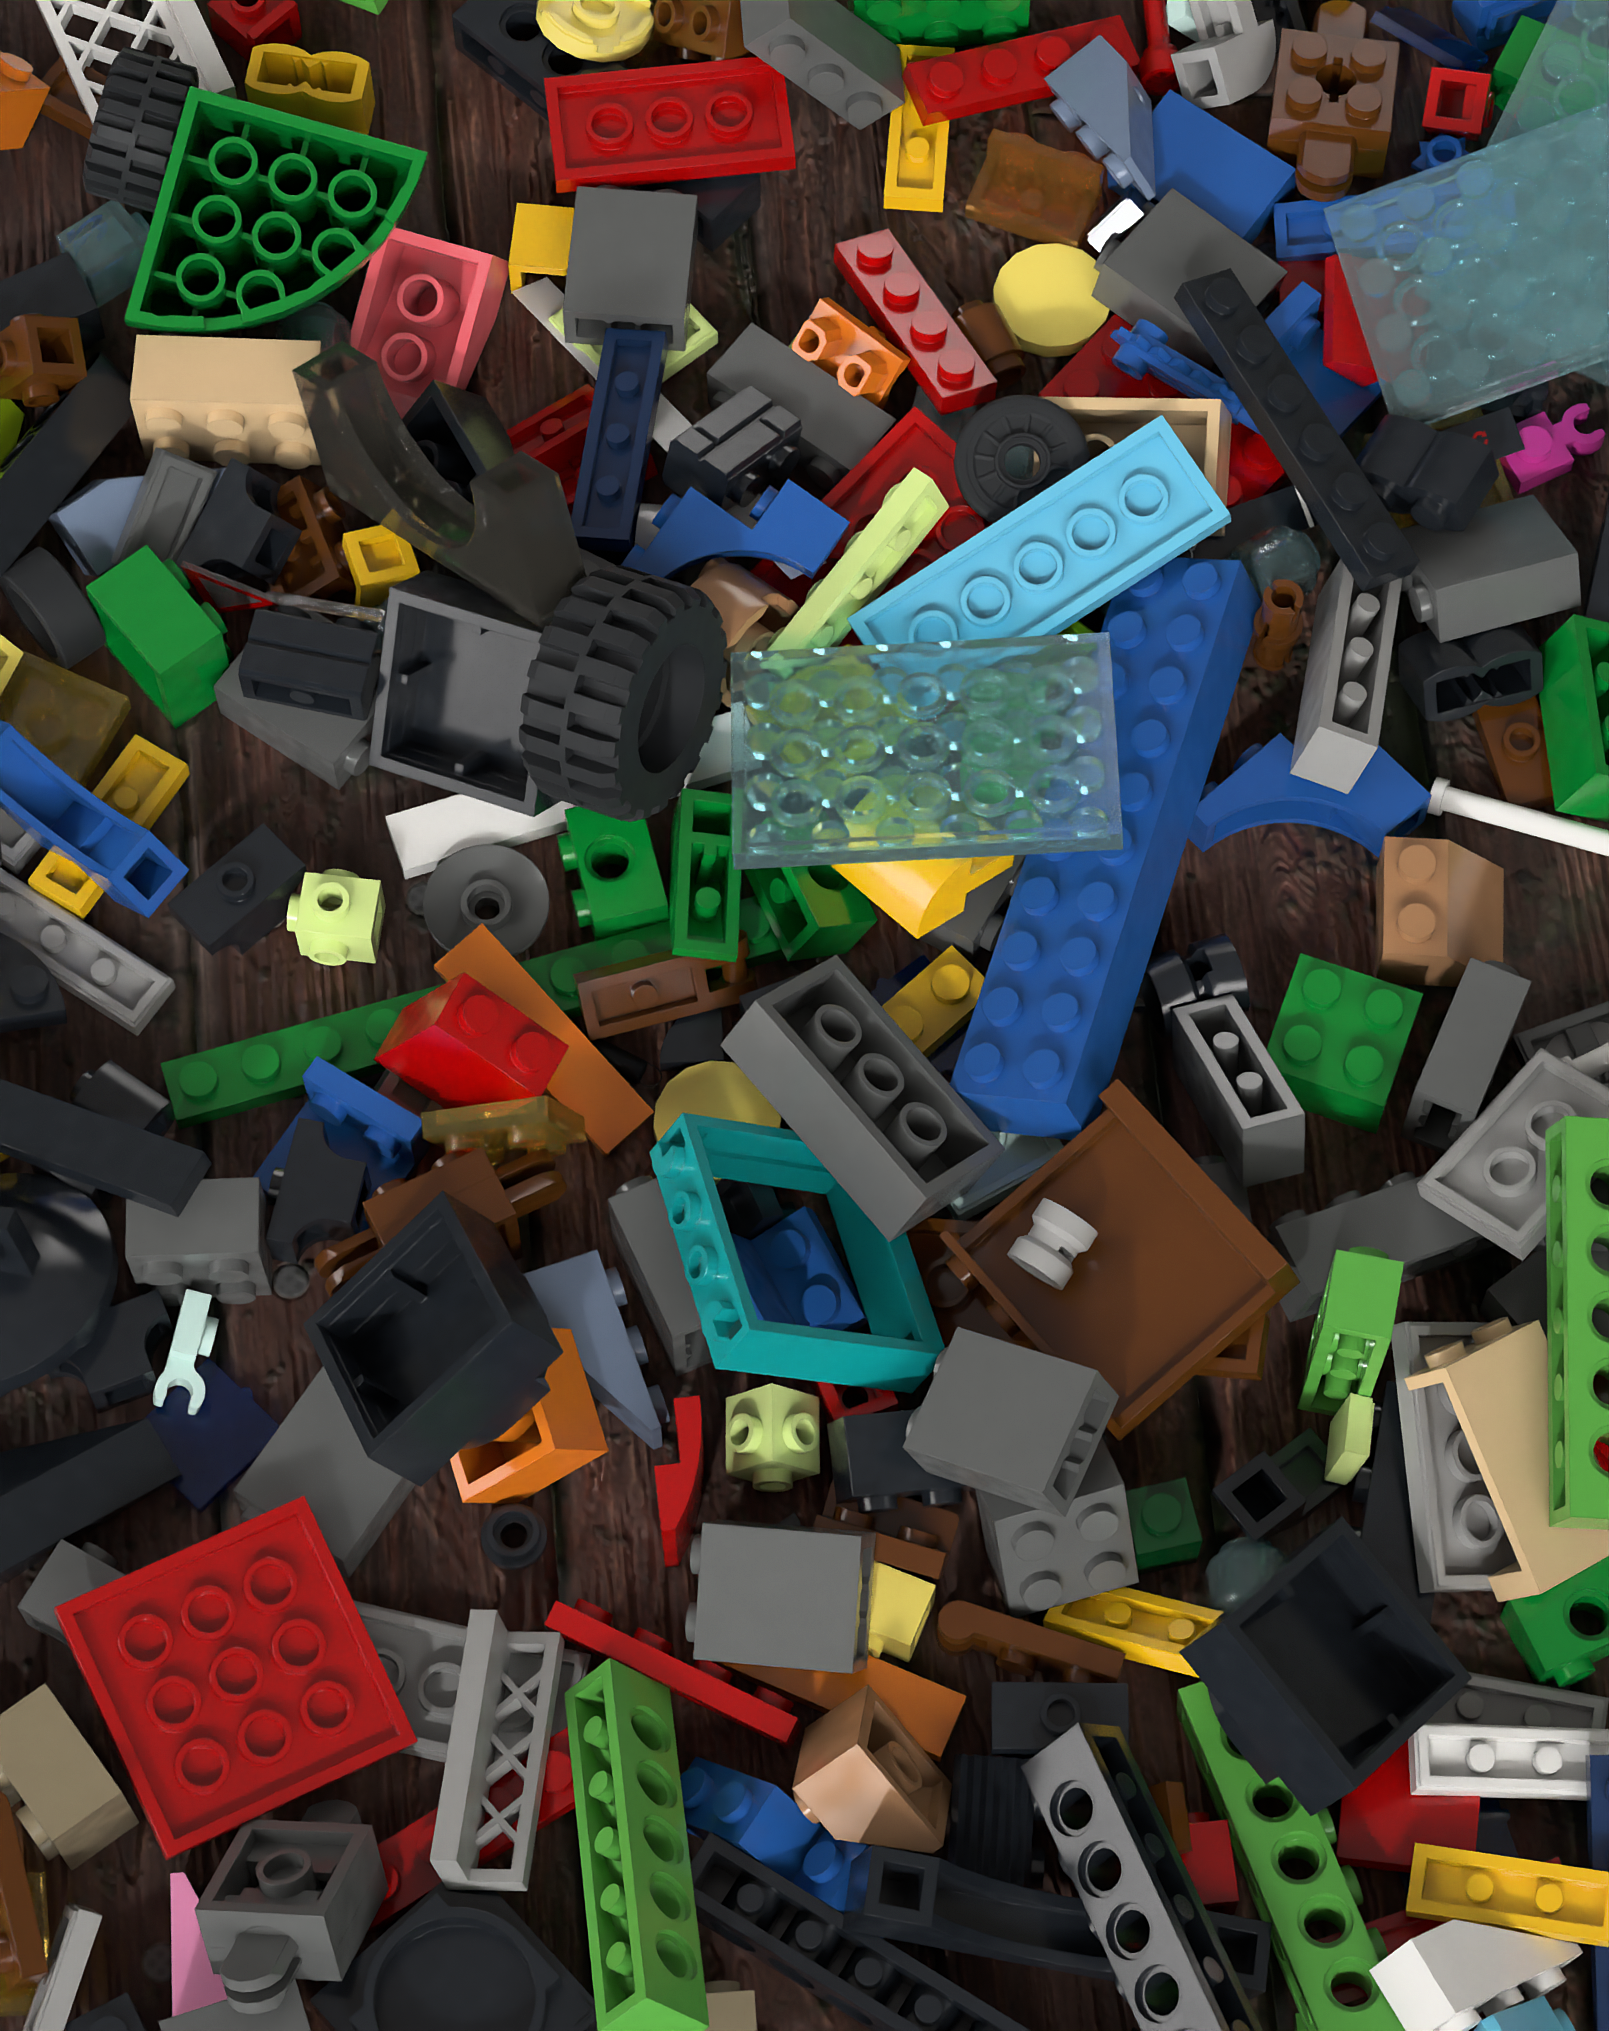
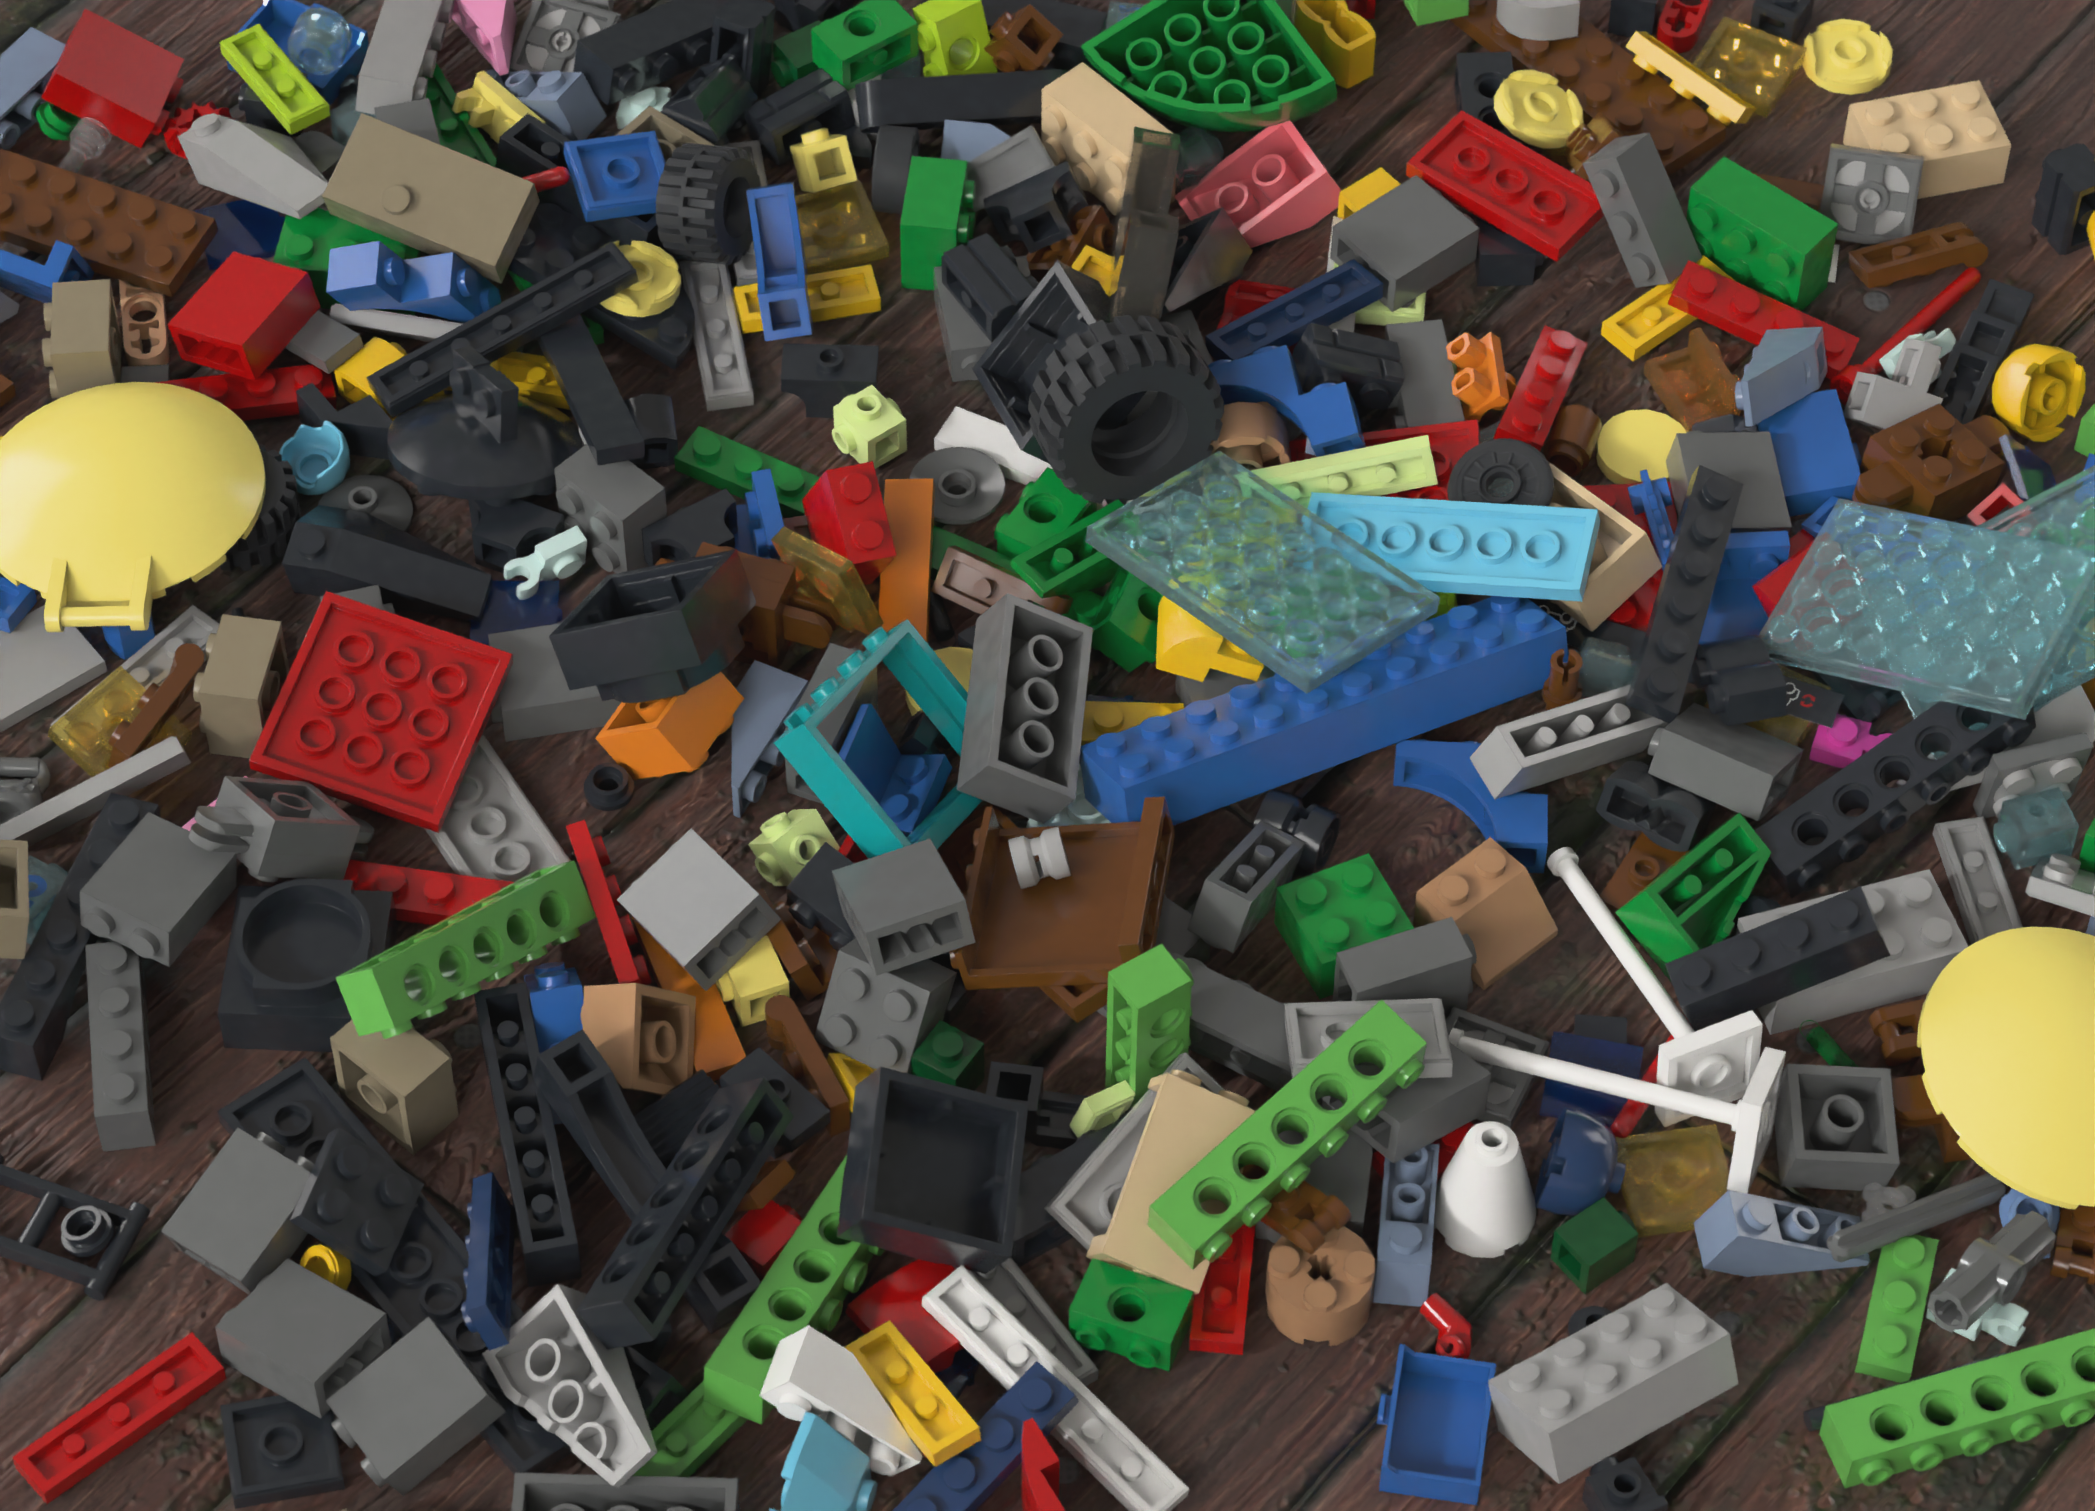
camera: 45 degrees right, 15 degrees down
(230, 596) = (995, 228): clear piece -> none
(472, 1750) = (455, 846): light grey fence -> none
(681, 1483) = (724, 817): red slope -> none

